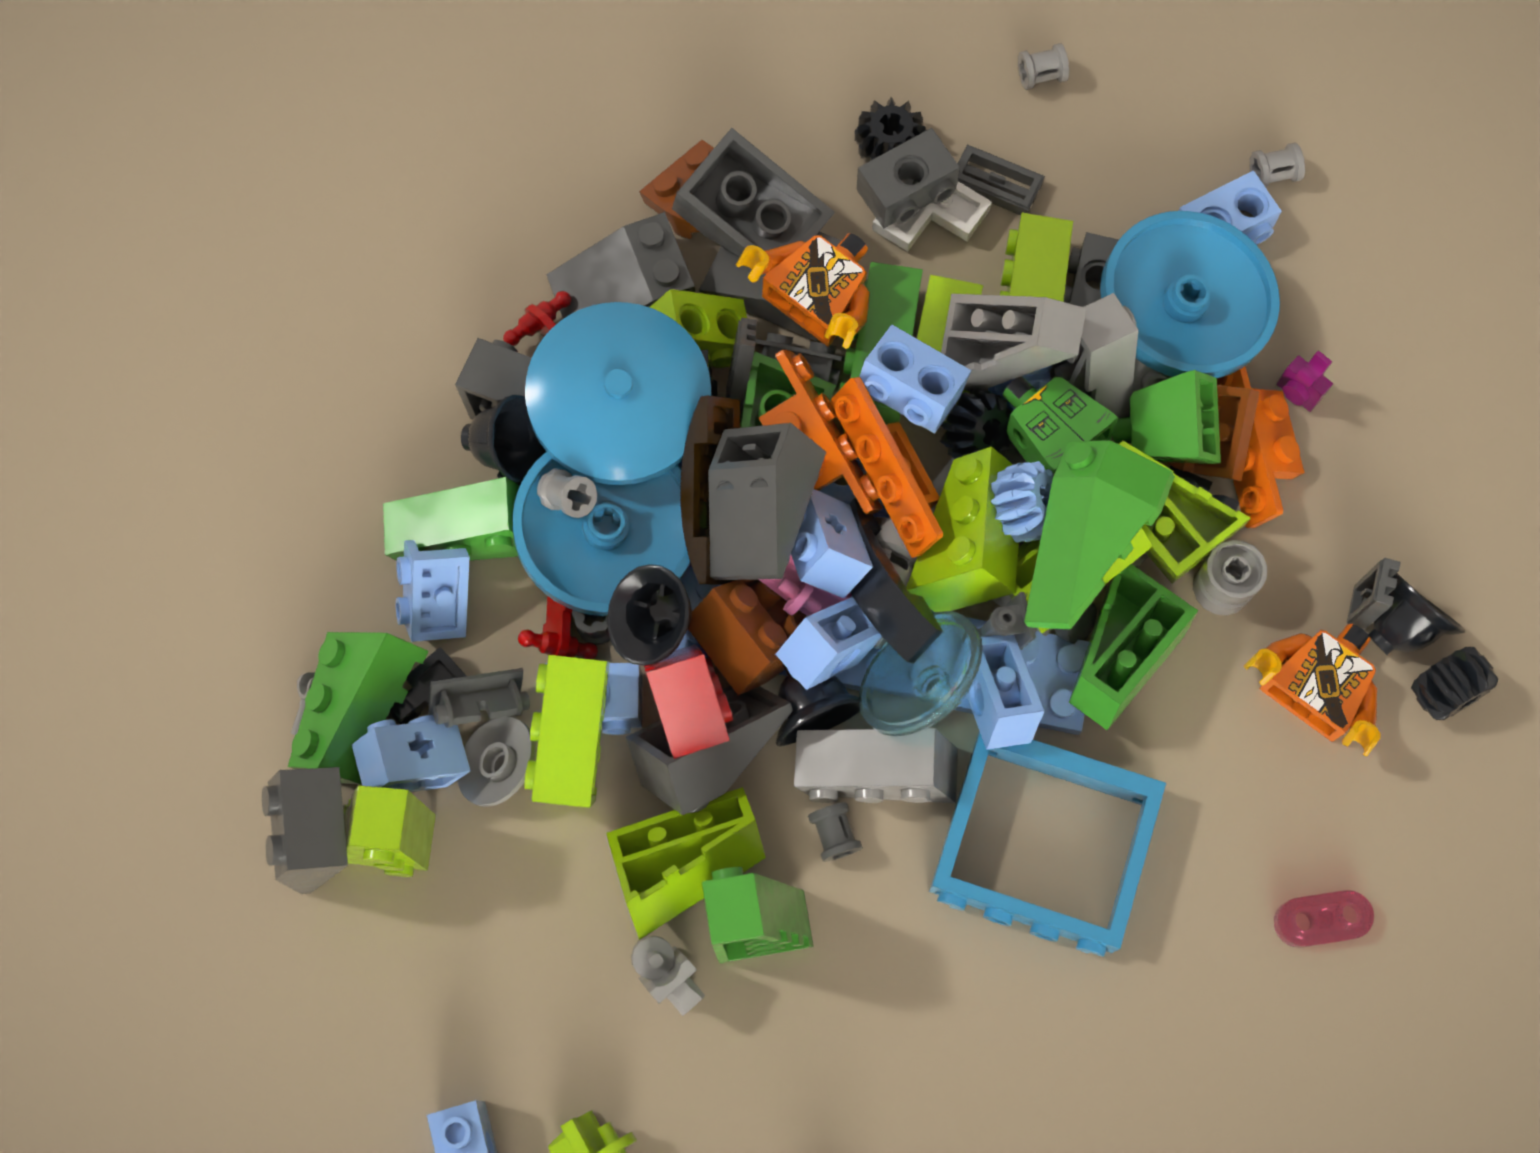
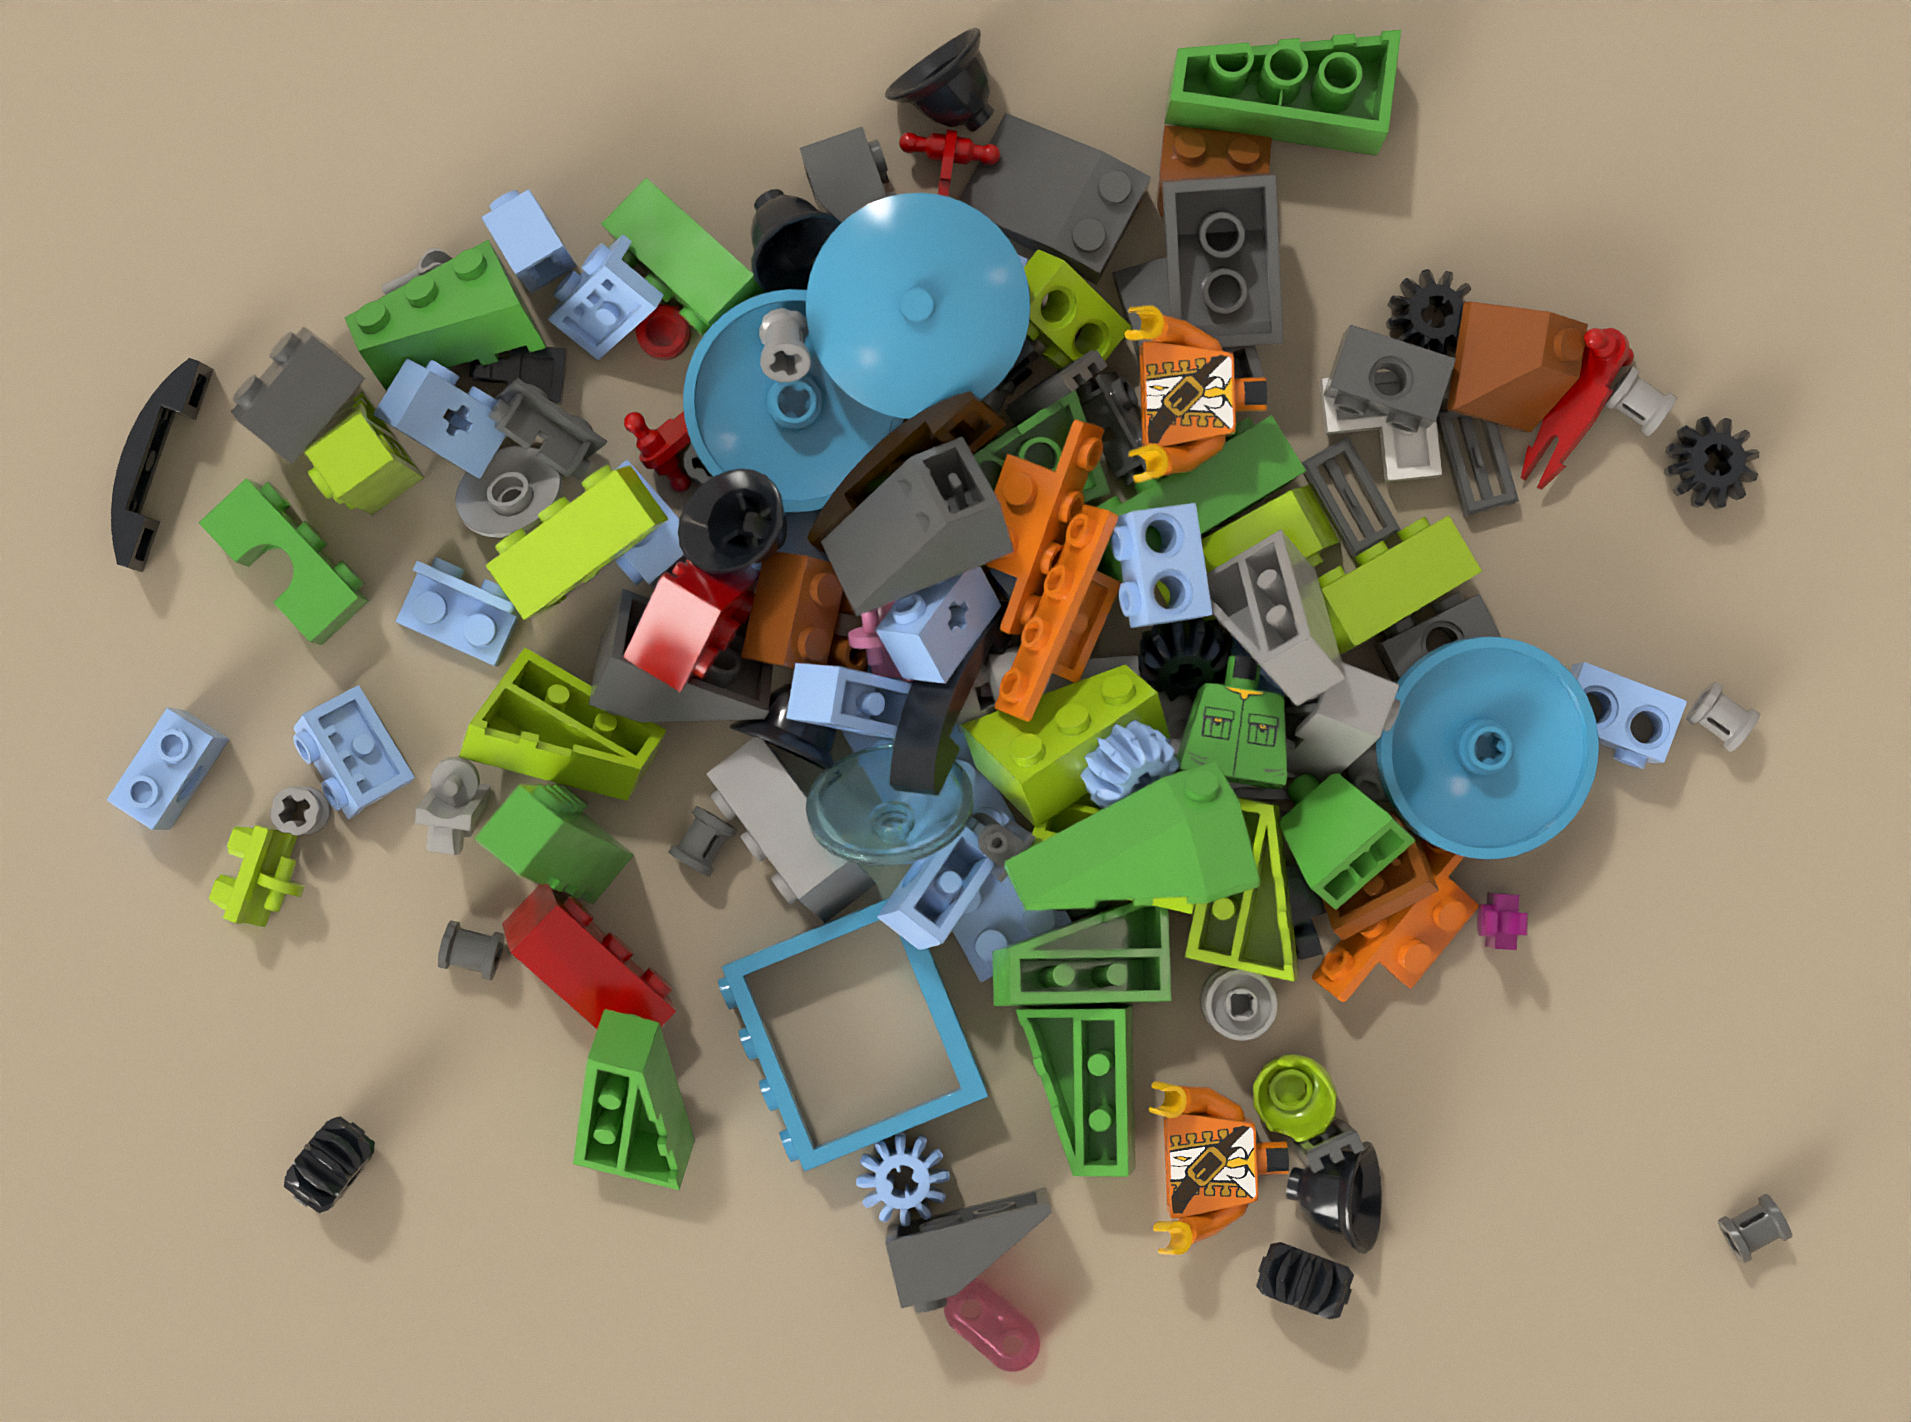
camera: 50 degrees right, 15 degrees up
(231, 929) = (180, 394): none -> black slope
(350, 602) = (528, 239): none -> light blue brick
(361, 947) = (320, 592): none -> bright green arch
(487, 582) = (663, 333): none -> red tile
(499, 285) = (949, 84): none -> black hat
(542, 862) = (459, 613): none -> light blue bracket
(569, 1020) = (351, 752): none -> light blue bracket
(571, 1075) = (284, 806): none -> light grey bush
(687, 103) = (1292, 90): none -> bright green wedge
(775, 1053) = (471, 950): none -> dark grey bush
(856, 978) = (581, 962): none -> red wedge
(958, 270) = (1331, 507): none -> dark grey tile
(962, 106) = (1514, 363): none -> dark orange slope
(977, 1027) = (633, 1105): none -> bright green wedge
(1012, 95) = (1581, 405): none -> red piece
(1115, 56) = (1729, 470): none -> black gear
(1173, 907) = (921, 1175): none -> light blue gear
(1208, 712) = (1089, 1081): none -> bright green wedge
(1258, 887) = (954, 1247): none -> dark grey slope
(1322, 593) = (1295, 1097): none -> lime hair

